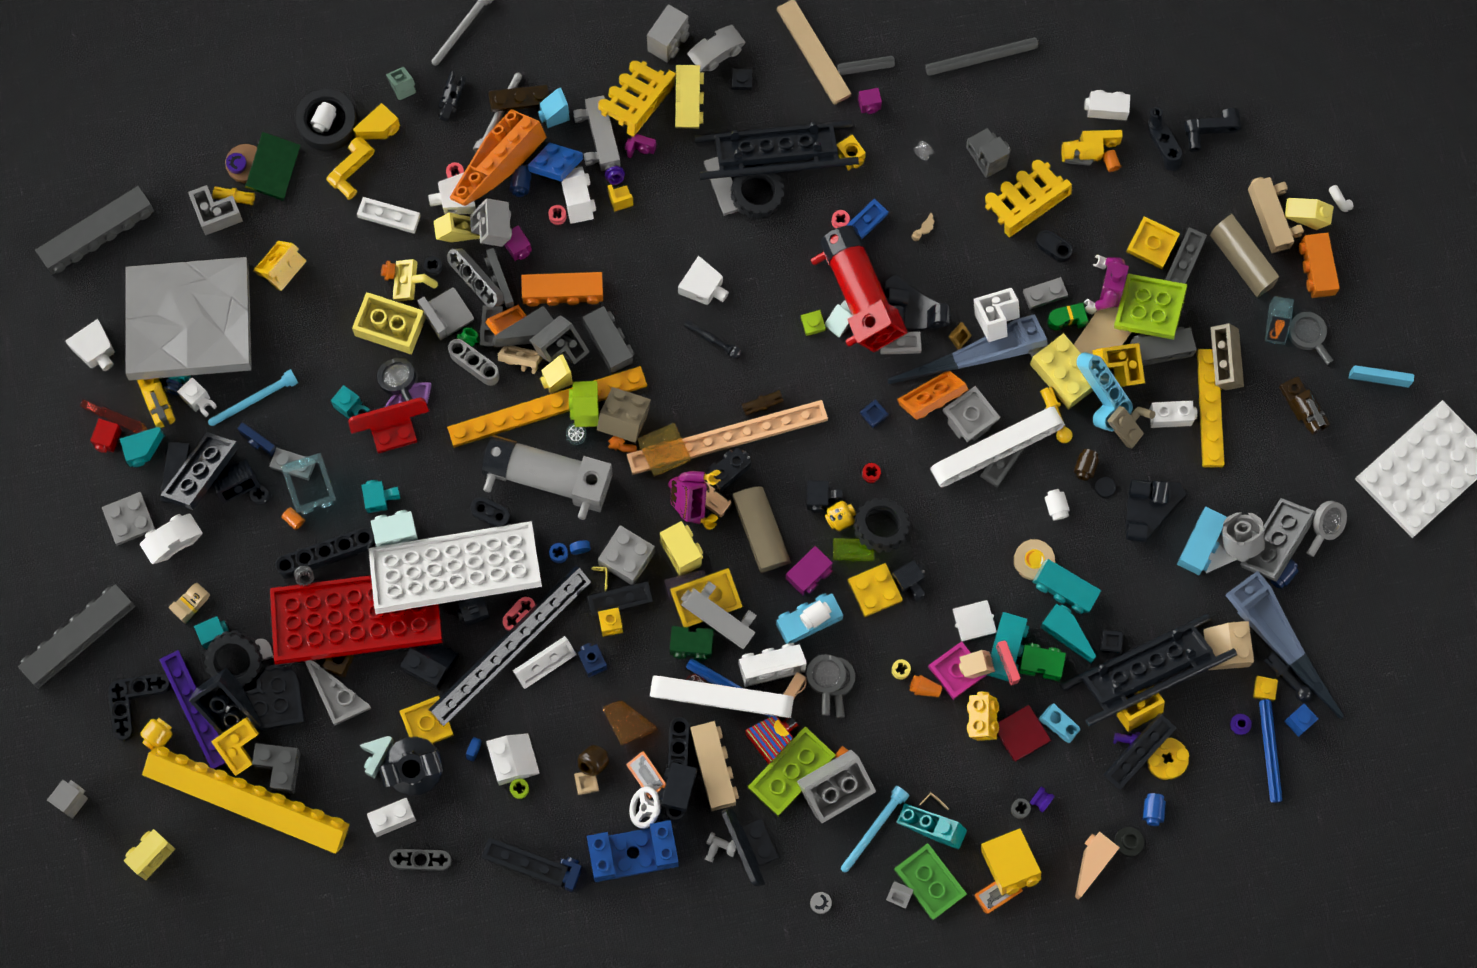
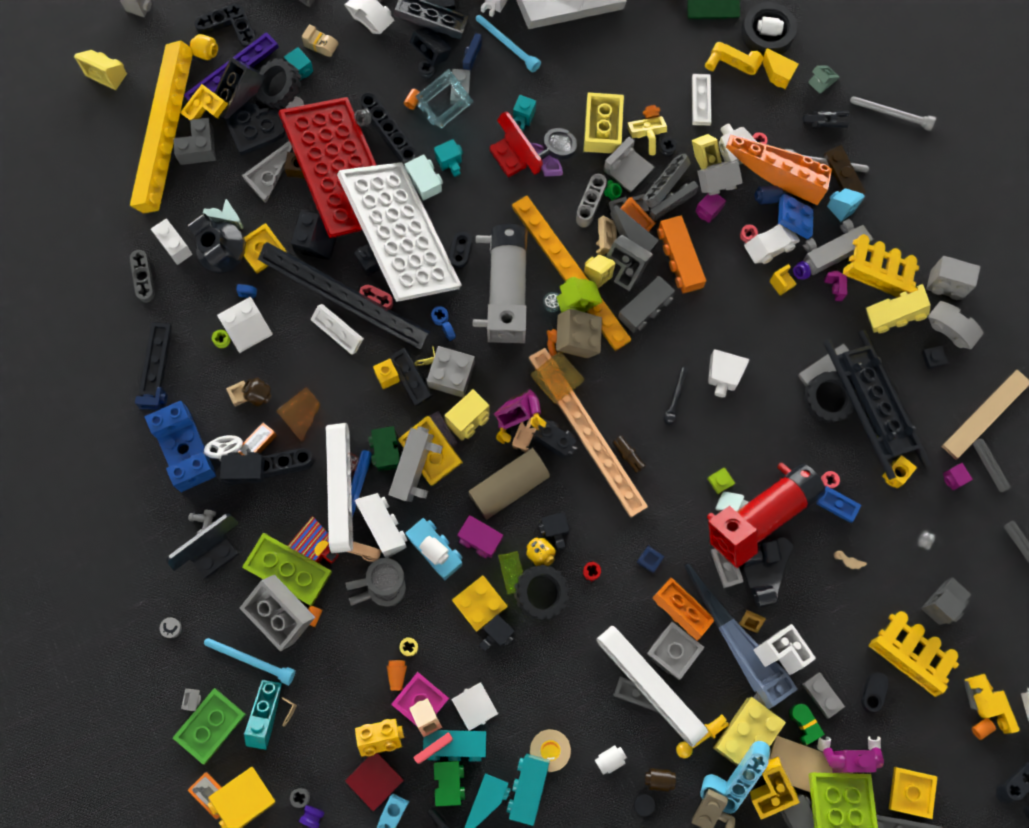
camera: 75 degrees right, 0 degrees up
(280, 264) = (628, 30): yellow bracket -> none
(594, 666) = (349, 374): dark blue brick -> none
(713, 765) = (275, 497): tan brick -> none

